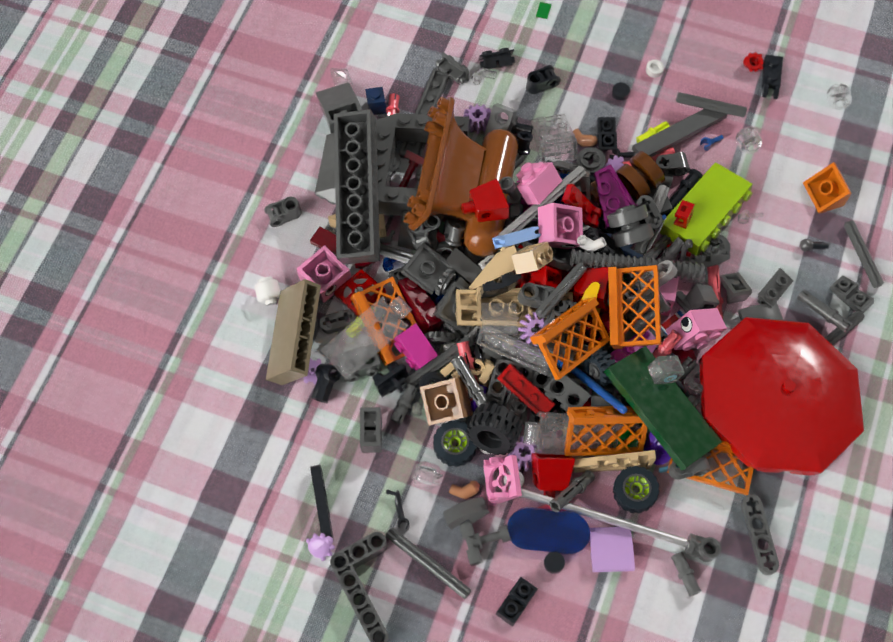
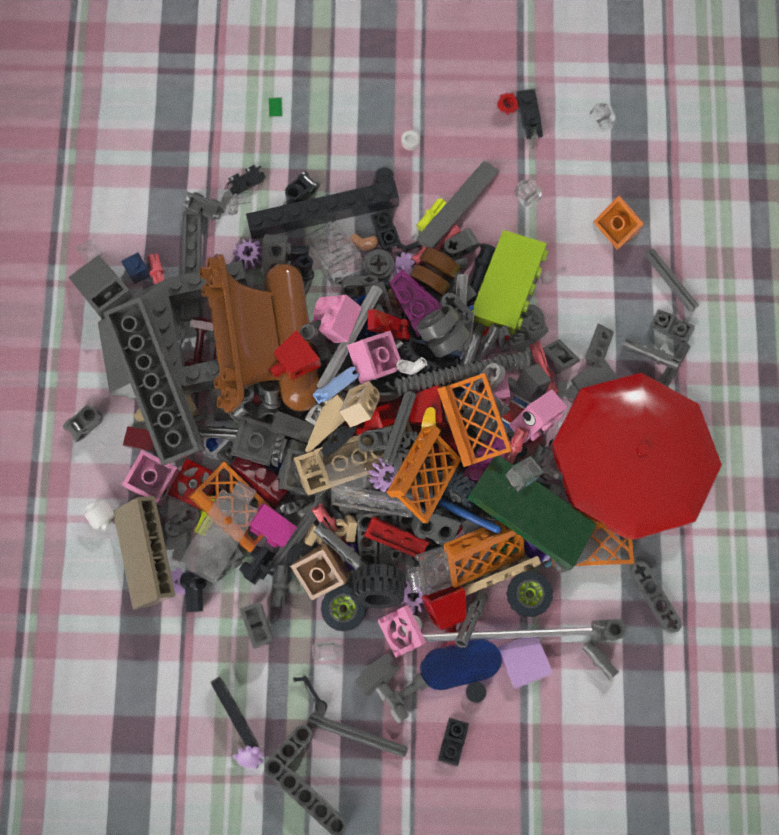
camera: 25 degrees left, 10 degrees up
(465, 492) = (370, 652): nougat arm -> none
(558, 100) = (323, 209): none -> black brick
(684, 212) = (490, 299): red piece -> none
(710, 141) = (490, 205): blue hand -> none
(711, 104) = (479, 166): dark grey axle -> none
(806, 245) = (615, 288): piece -> none

